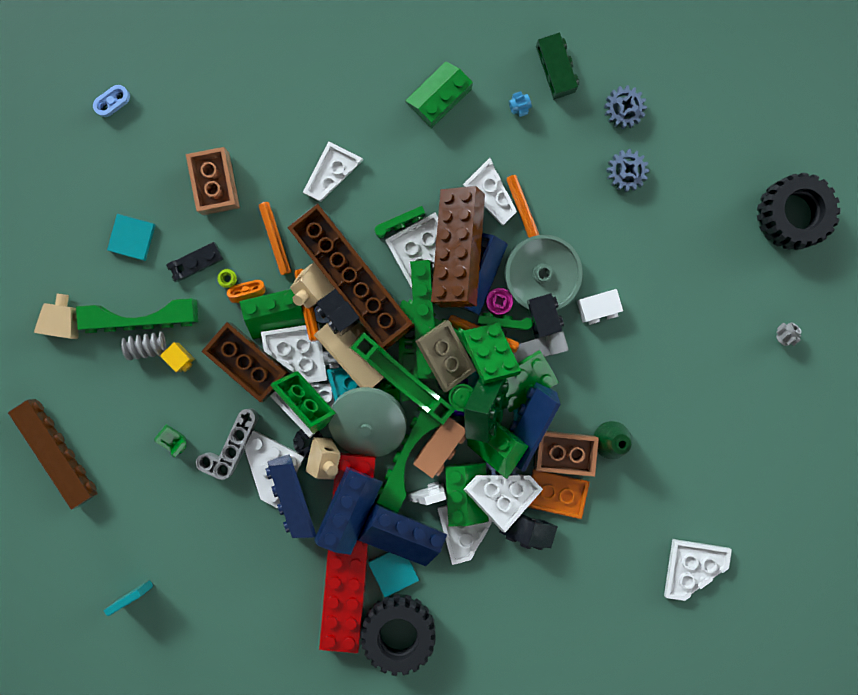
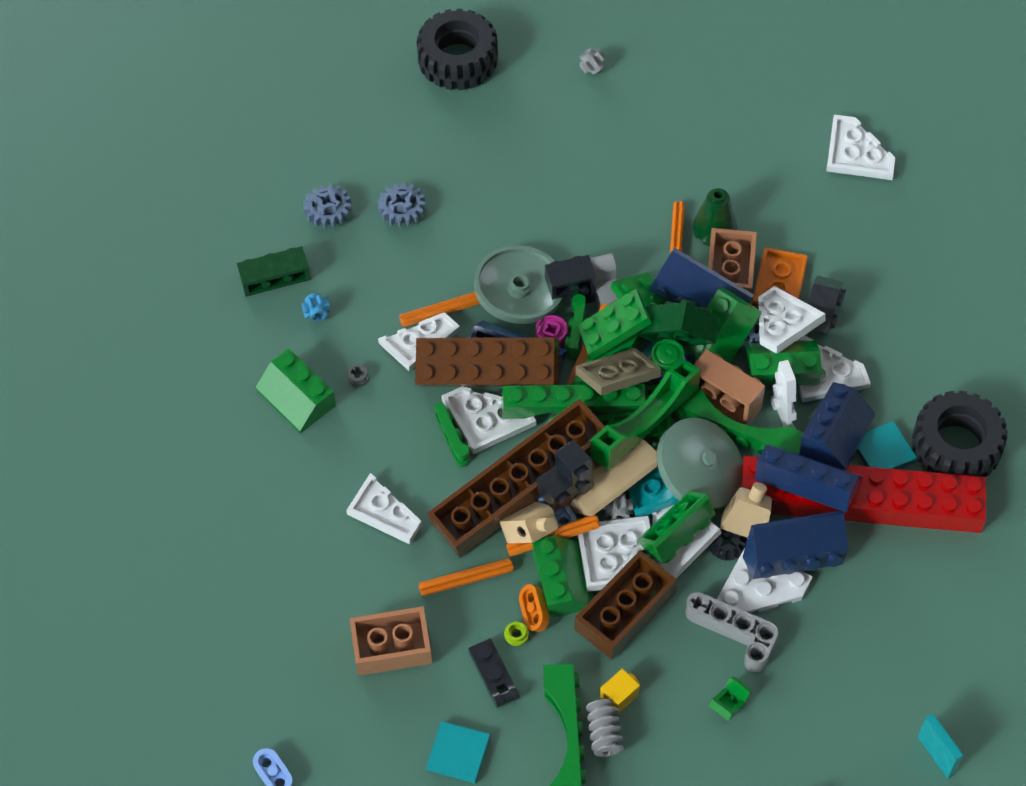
camera: 90 degrees left, 30 degrees down
(453, 147) = (363, 379): none -> dark grey bush
(596, 407) = (677, 225): none -> orange axle
(599, 306) = (559, 233): white brick -> none

